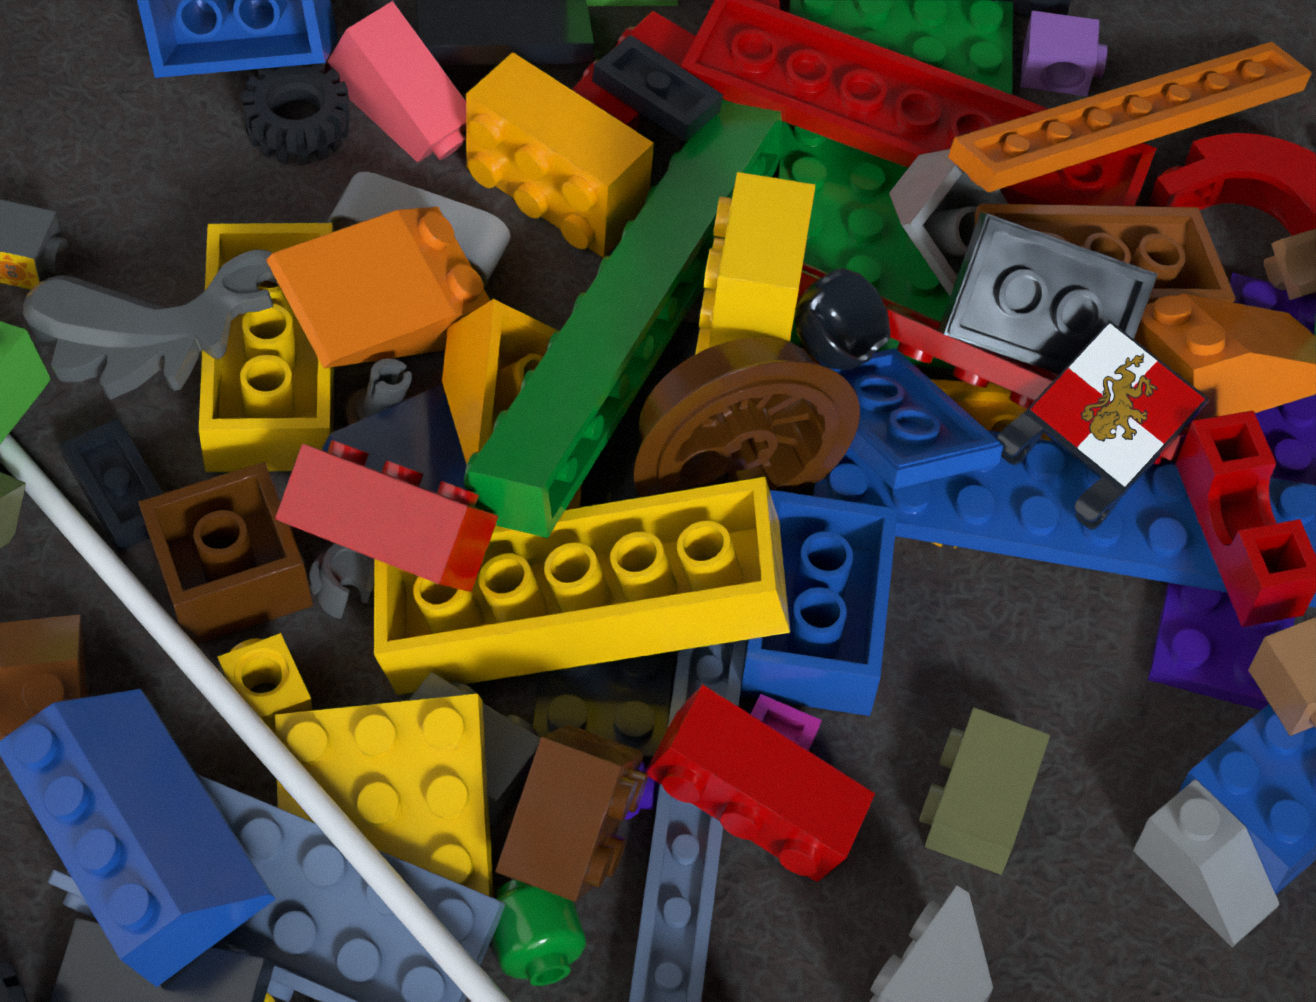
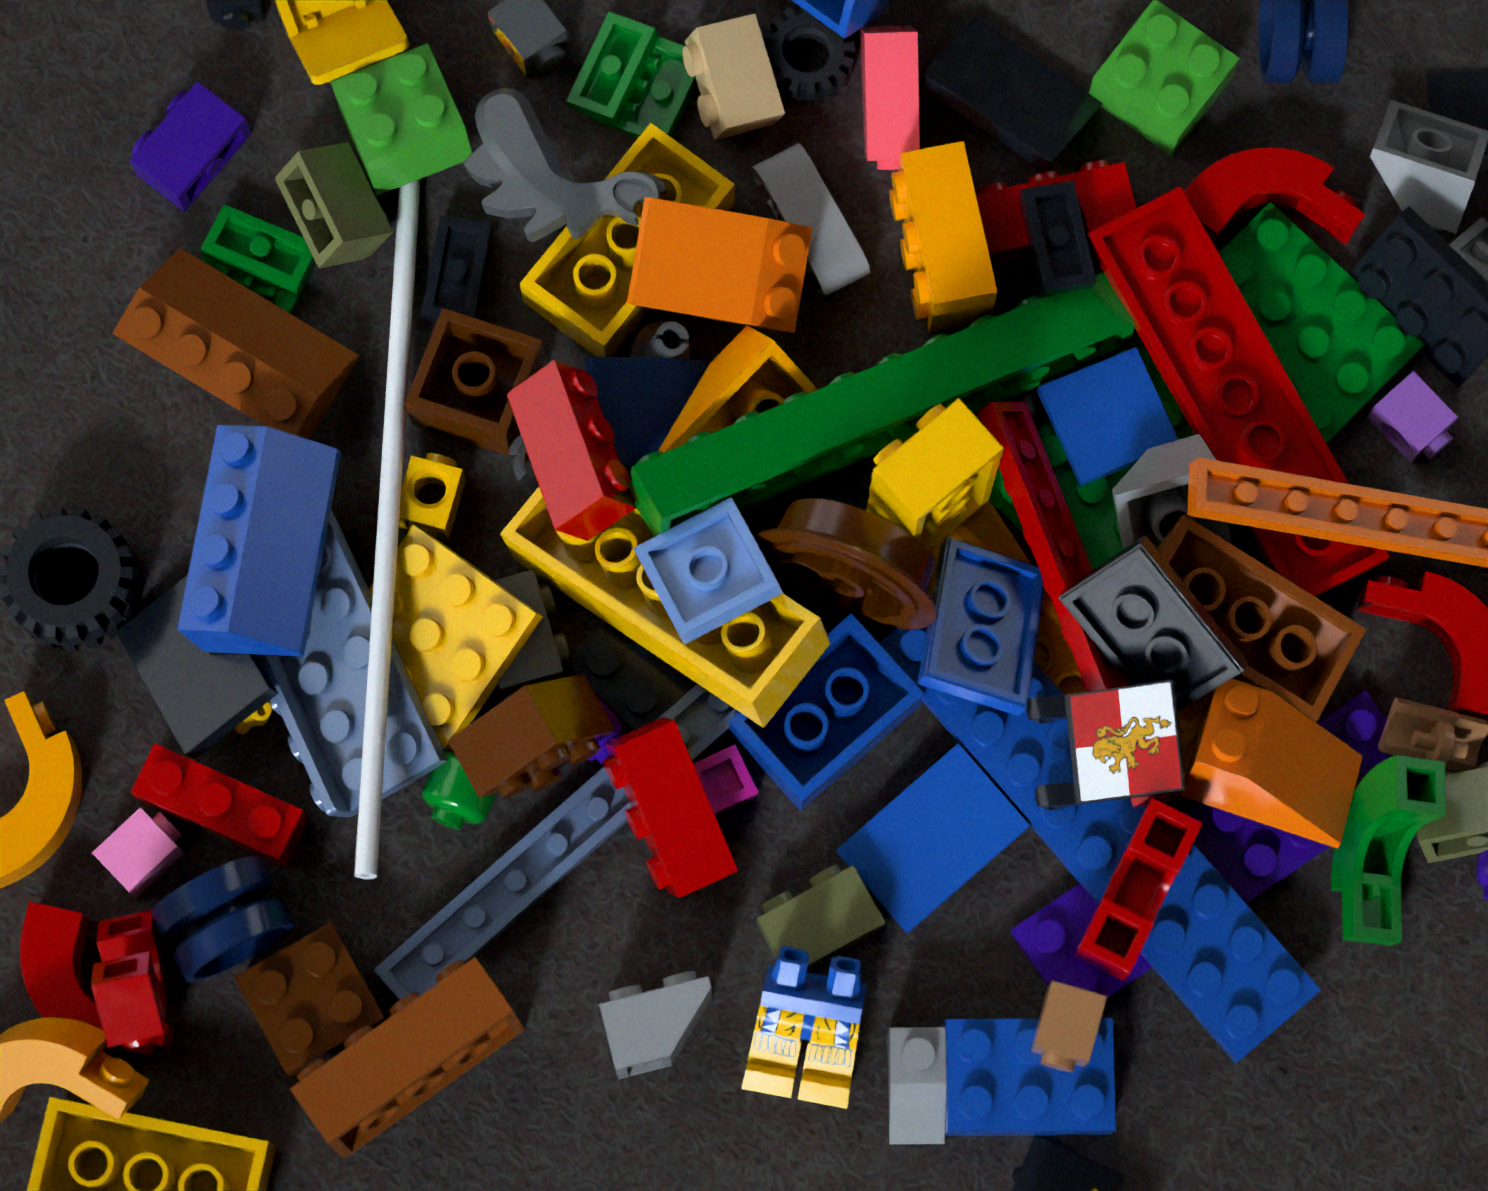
camera: 45 degrees right, 20 degrees up
(151, 227) = (633, 79): none -> green slope
(247, 158) = (733, 77): none -> tan brick
(622, 513) = (708, 570): none -> medium blue plate
(842, 320) = (1003, 531): black hair -> none
(847, 202) = (1106, 415): none -> blue tile
(1012, 637) = (933, 838): none -> blue tile
(1074, 883) = (811, 1009): none -> hips

